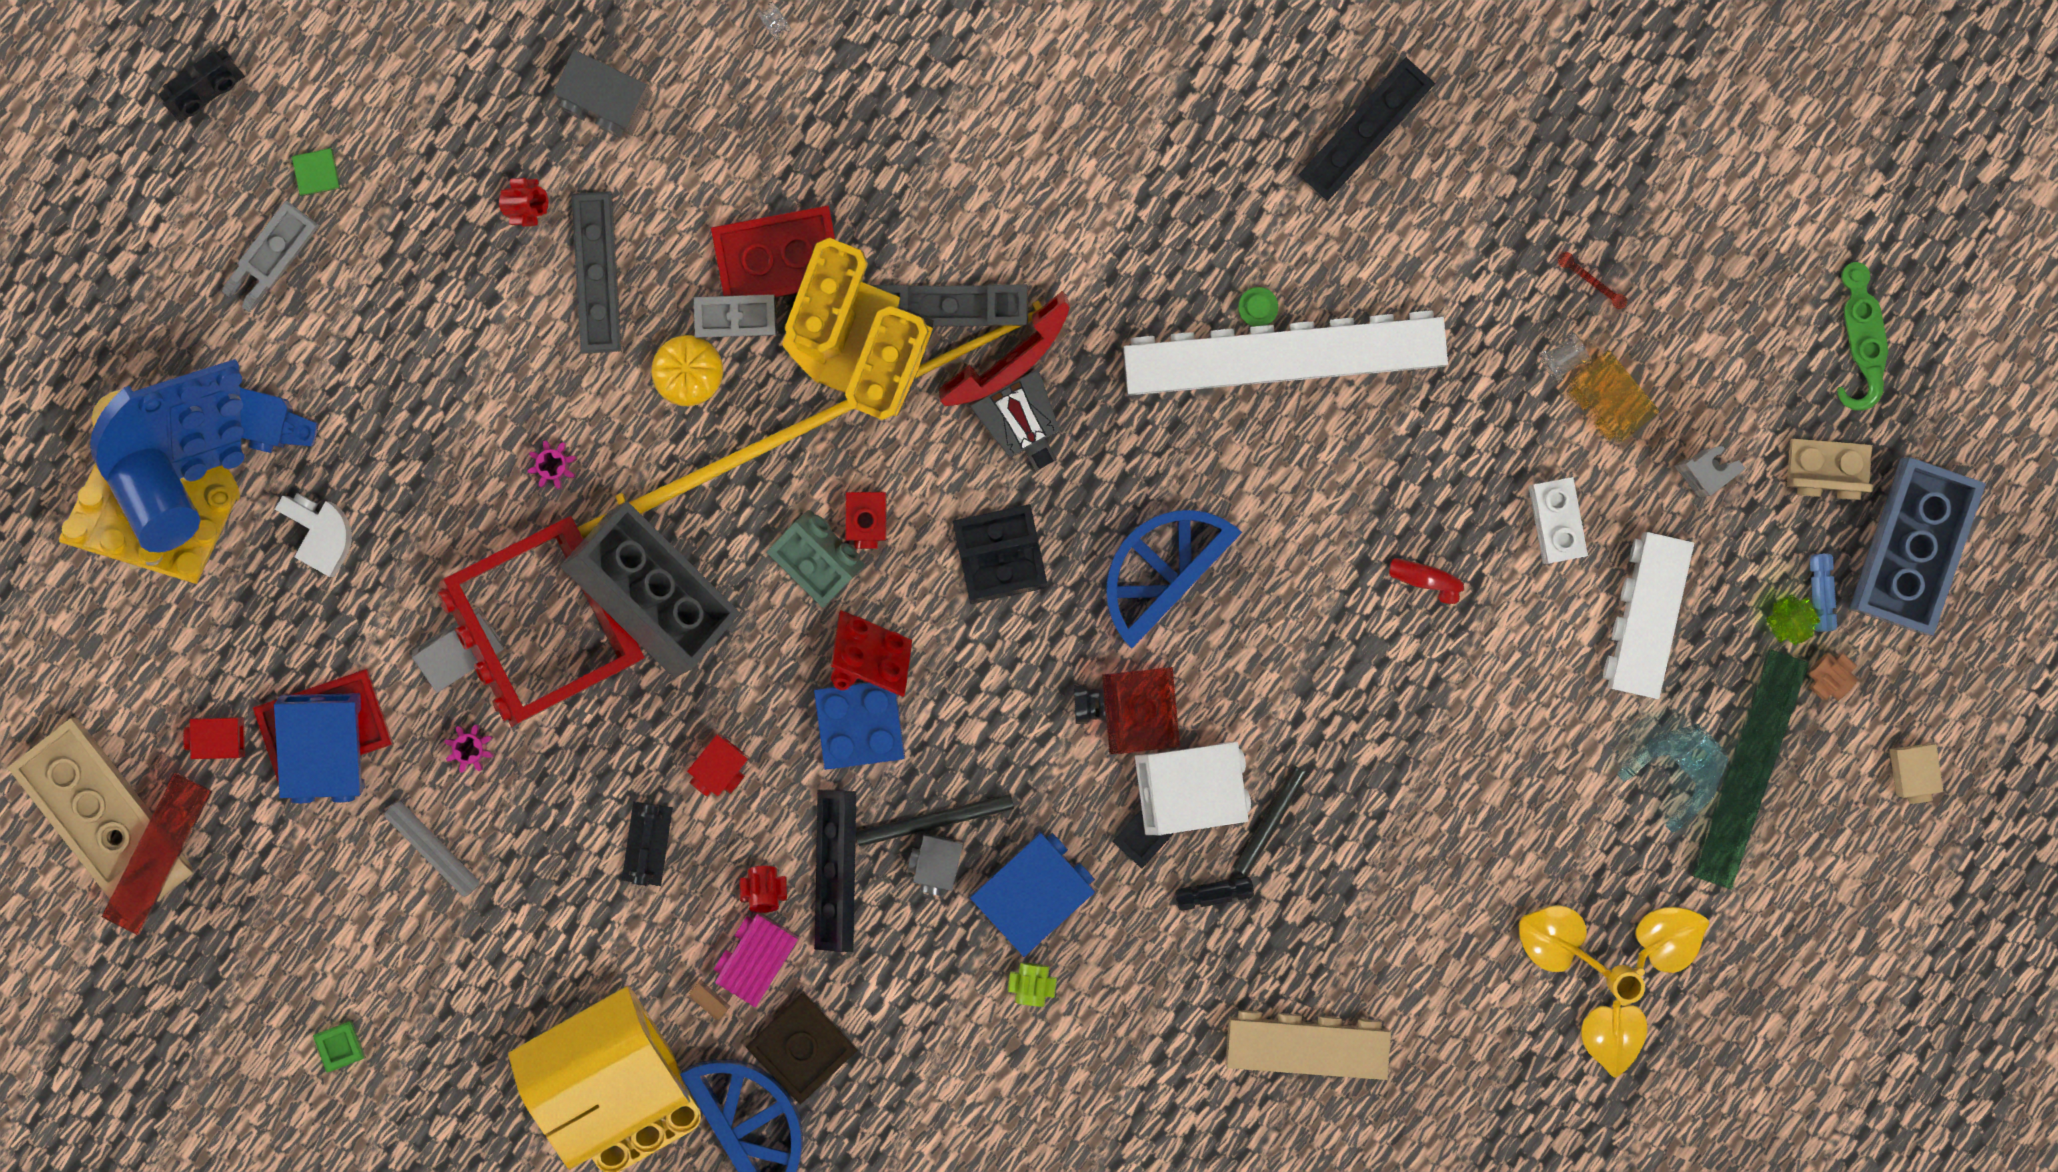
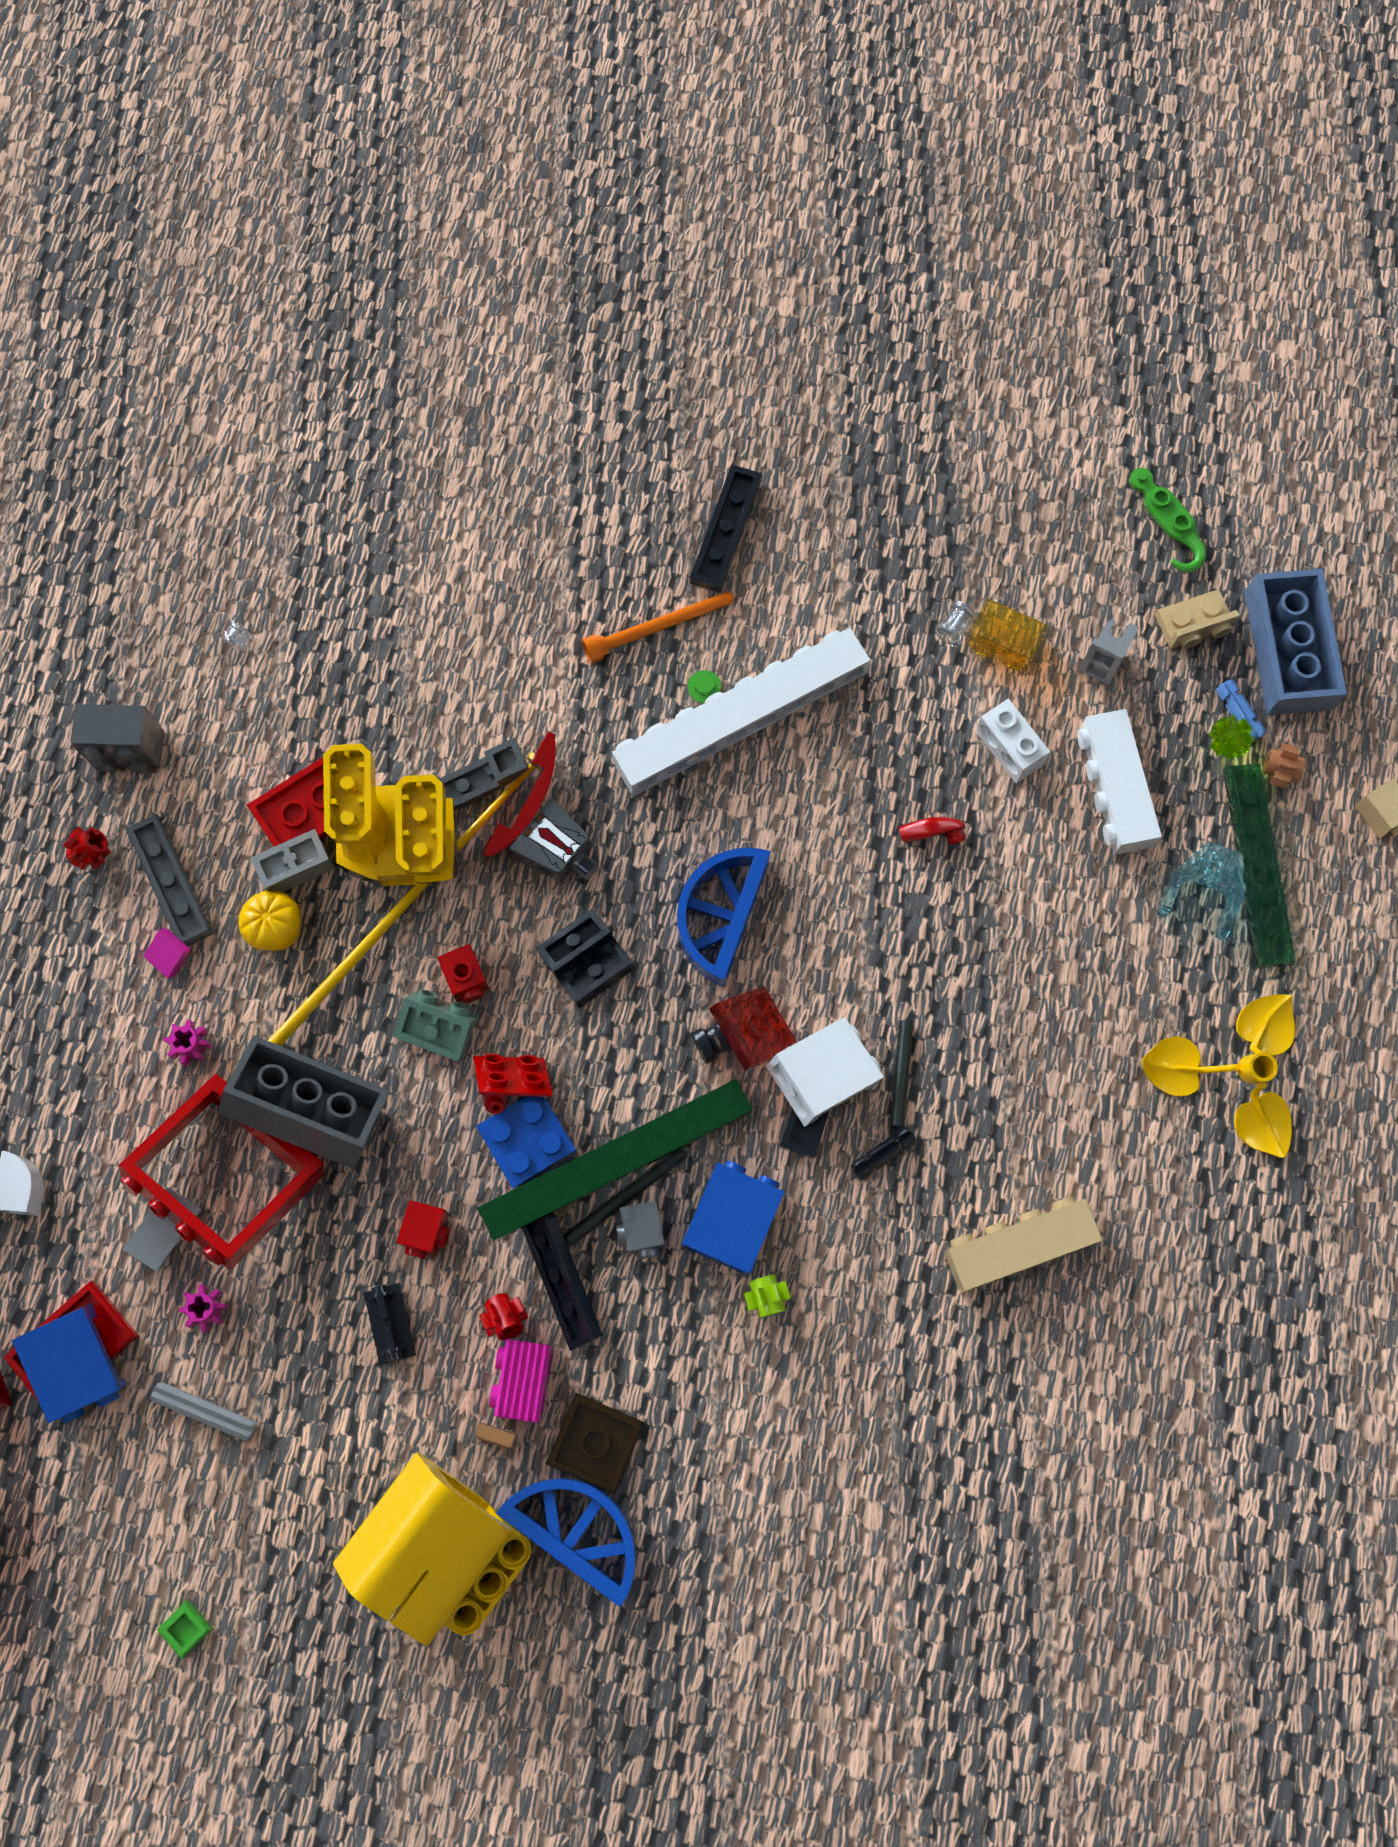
camera: 20 degrees left, 15 degrees down
(565, 355) = (167, 953): none -> dark pink tile
(941, 784) = (614, 1160): none -> dark green tile
(1164, 209) = (599, 646): none -> orange piece
(1566, 261) = (922, 559): clear red hinge -> none

